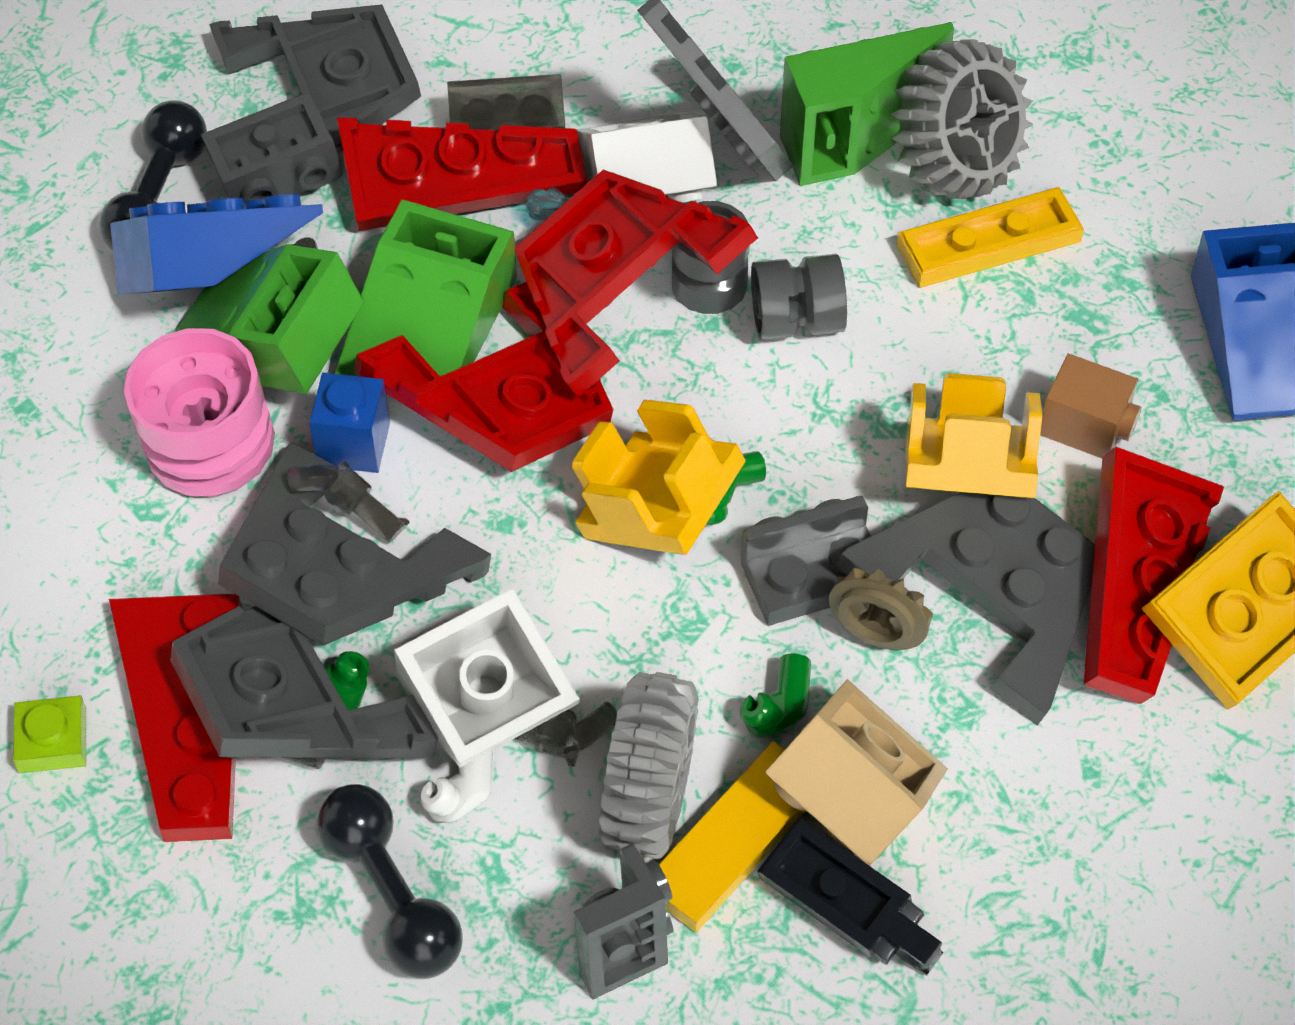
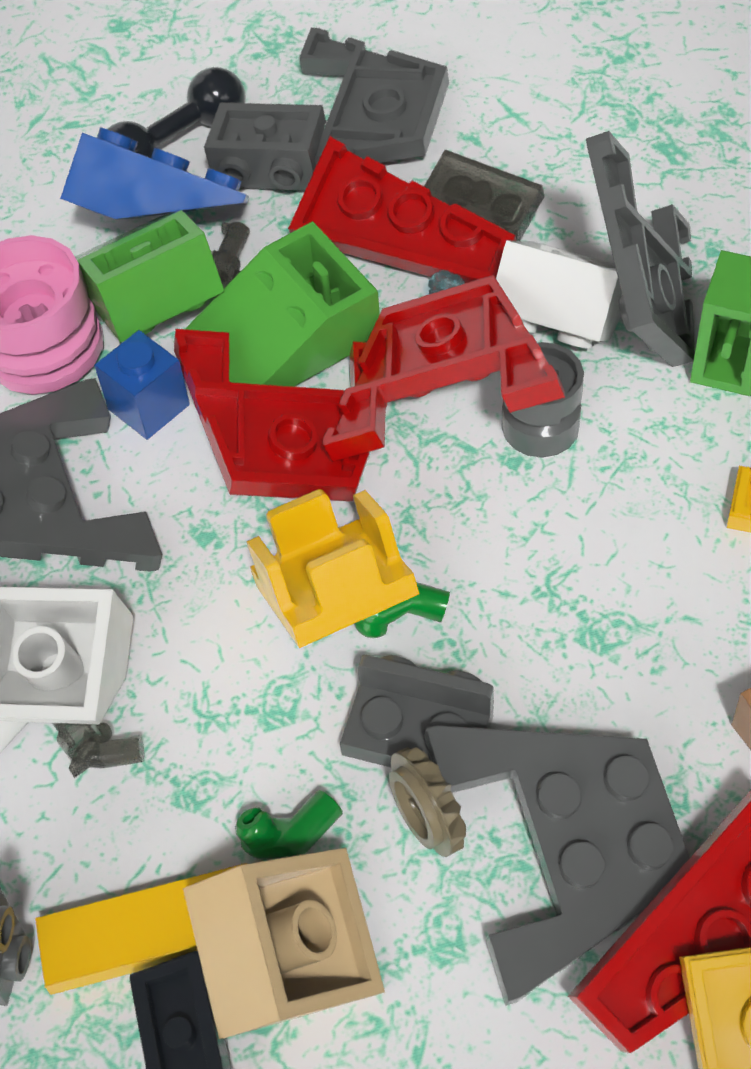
camera: 40 degrees right, 0 degrees up
(349, 494) = (97, 442): clear smoke piece -> none
(648, 764) = (102, 816): light grey gear -> none
(820, 293) = (607, 490): dark grey wheel -> none
(970, 440) = (640, 703): yellow panel -> none

